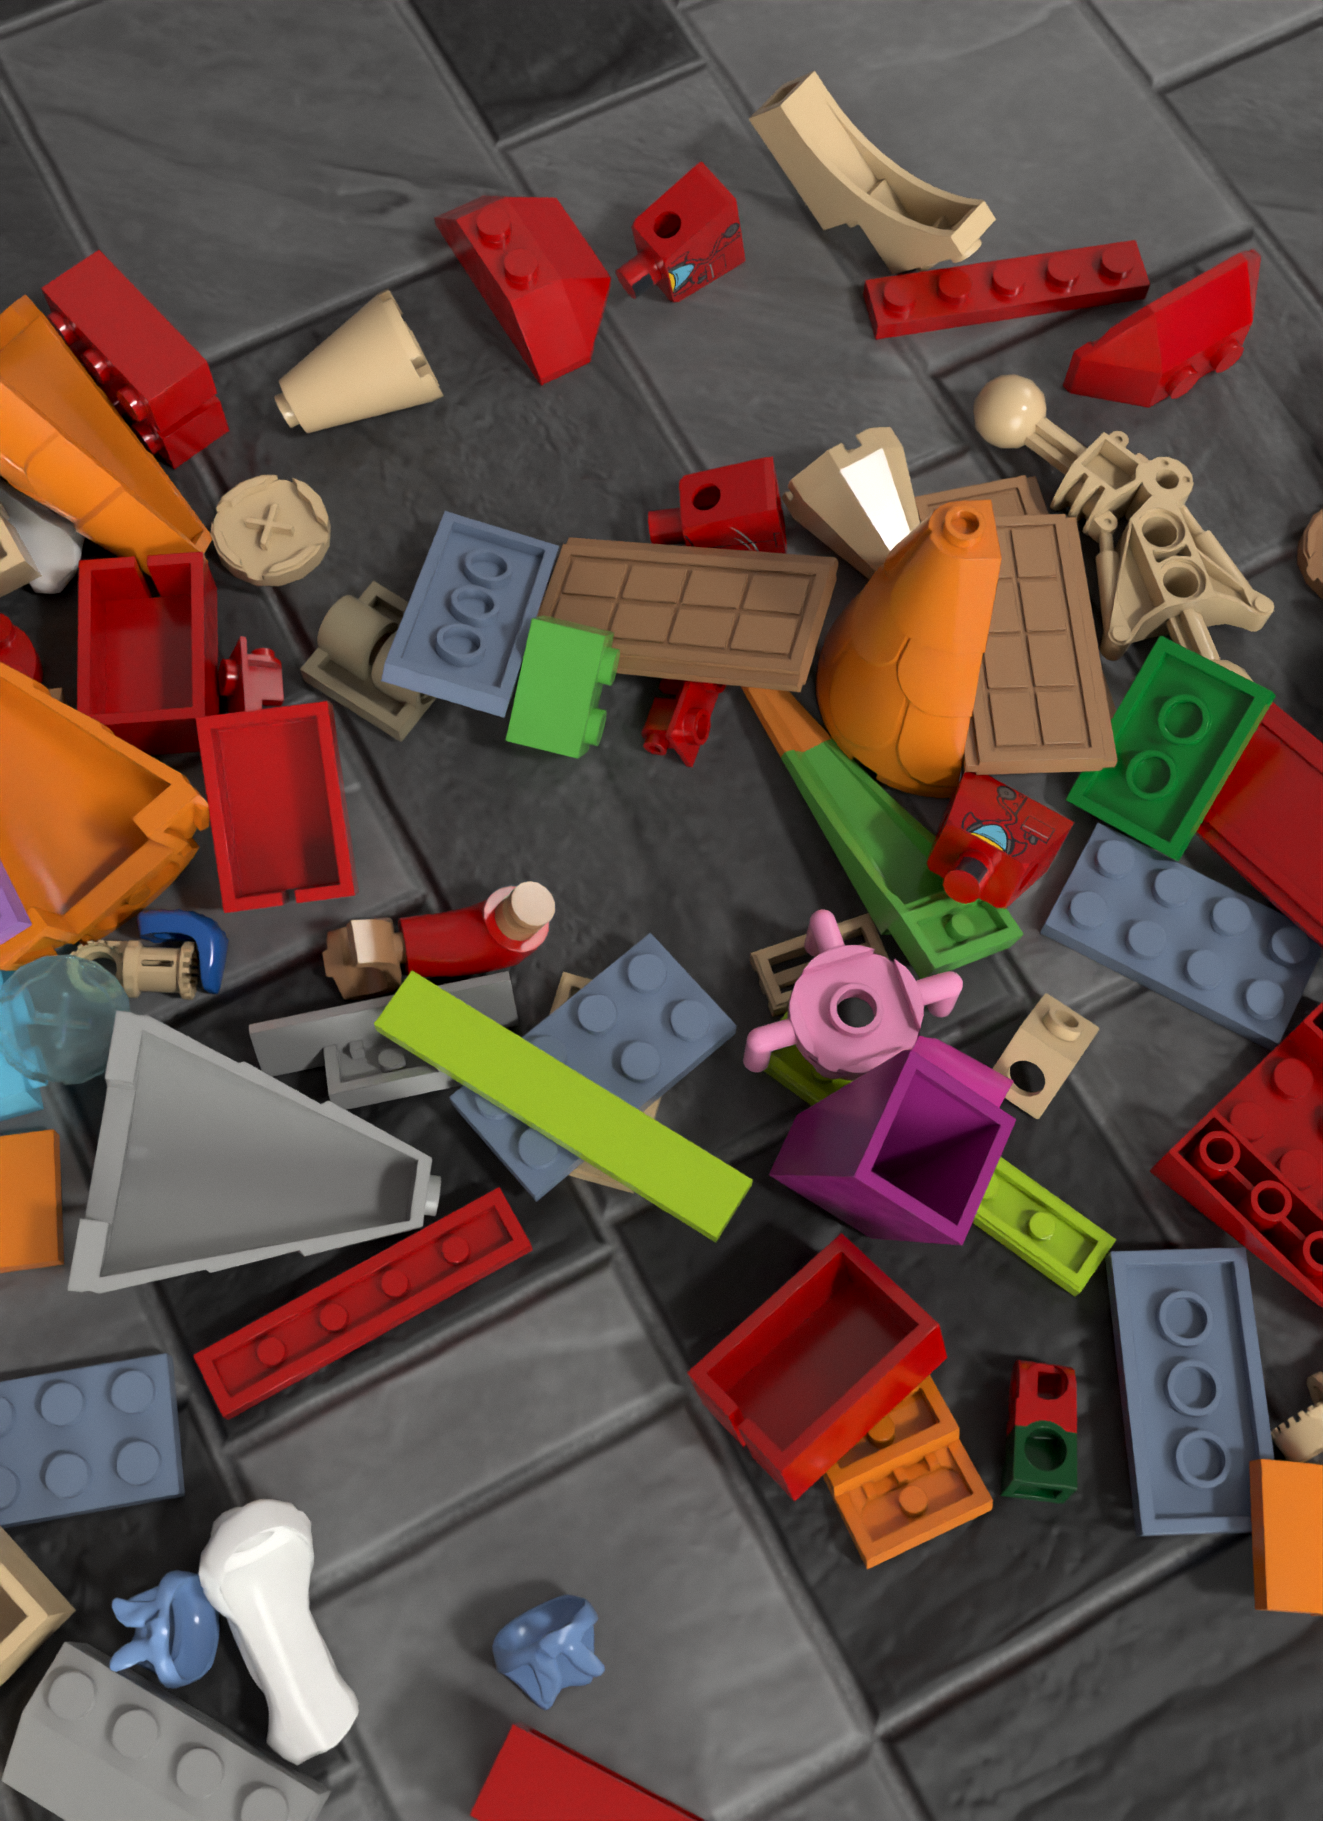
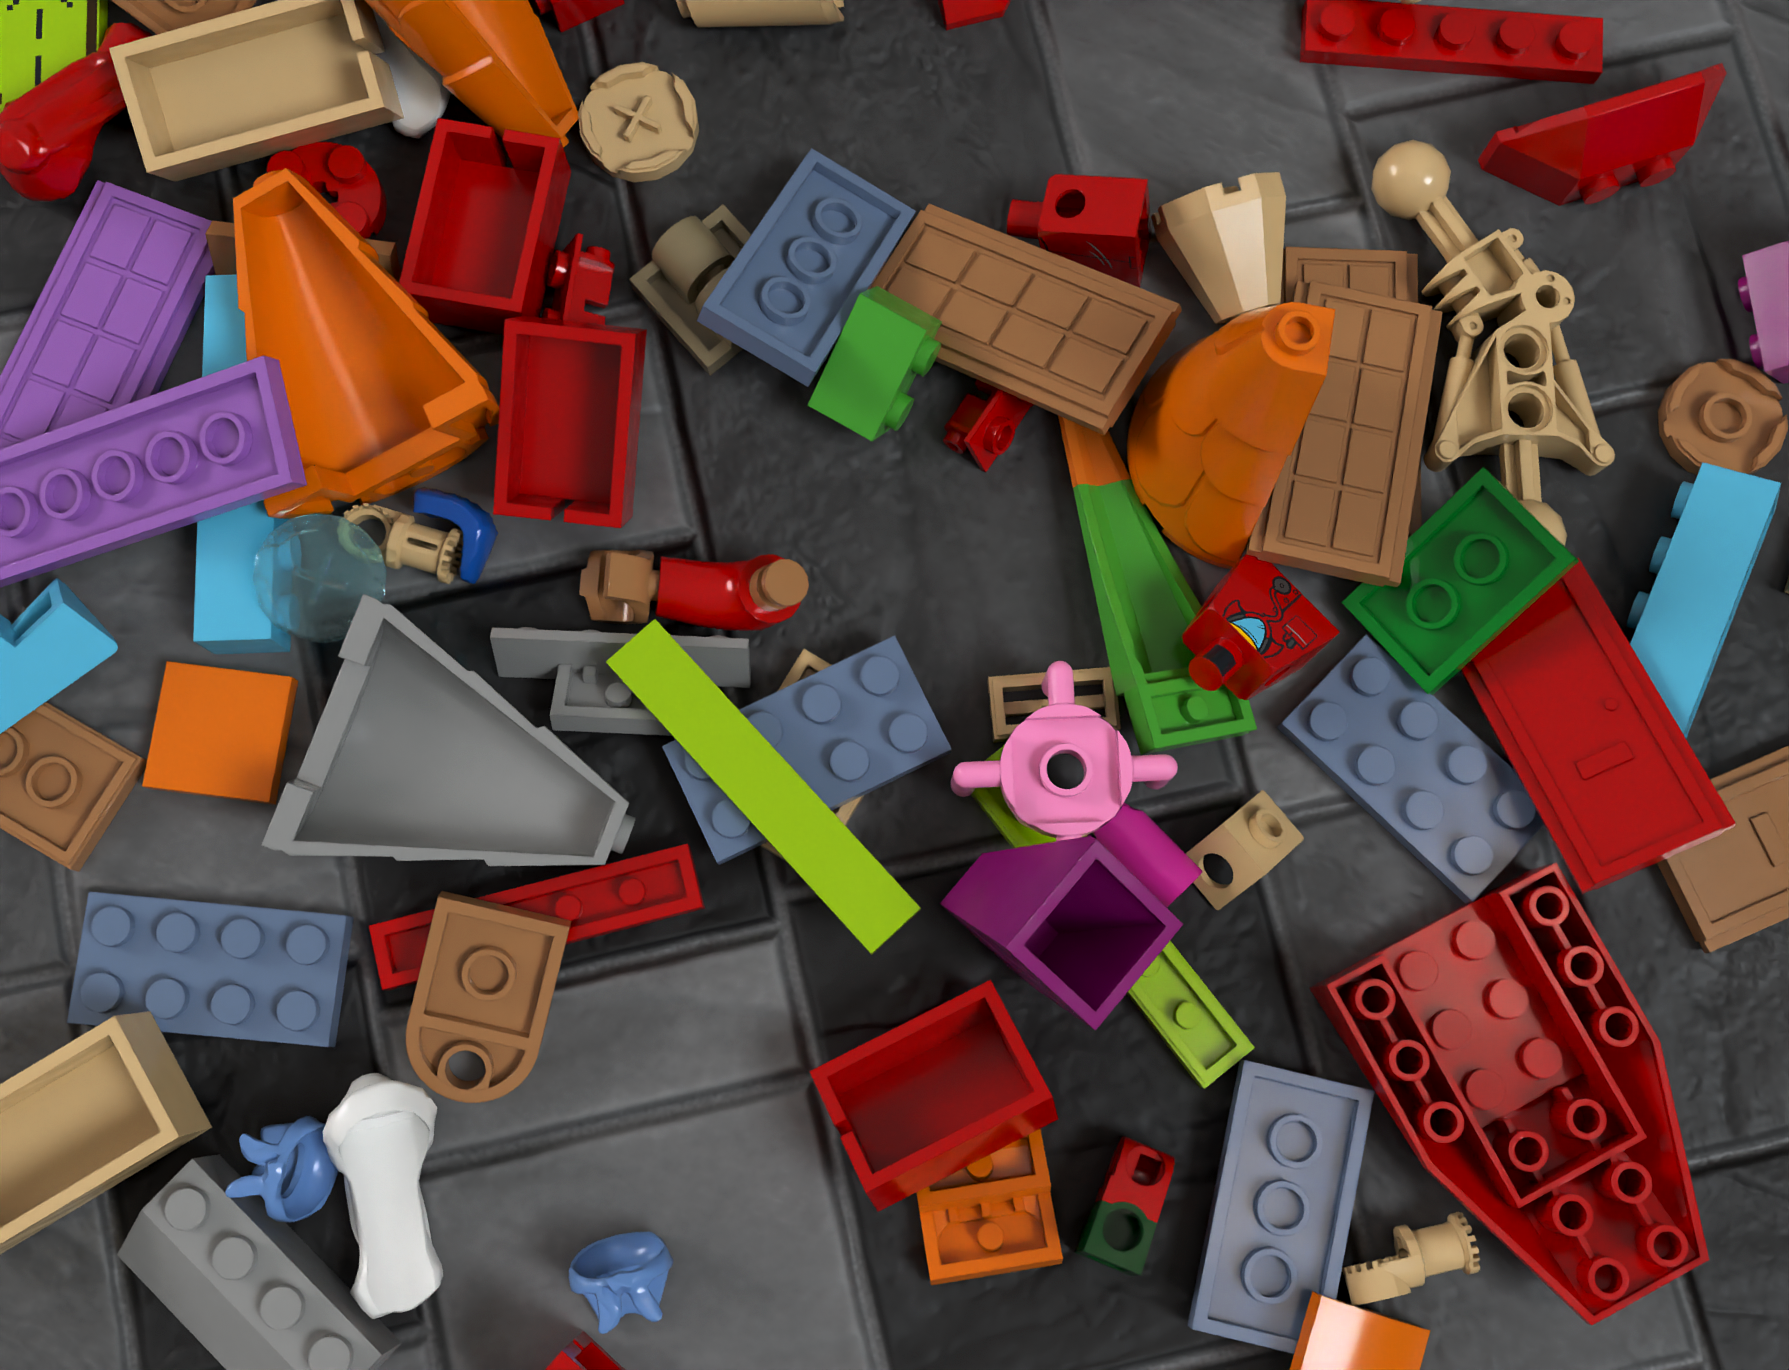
camera: 15 degrees right, 10 degrees up
(330, 1390) = (484, 992): none -> medium nougat tile

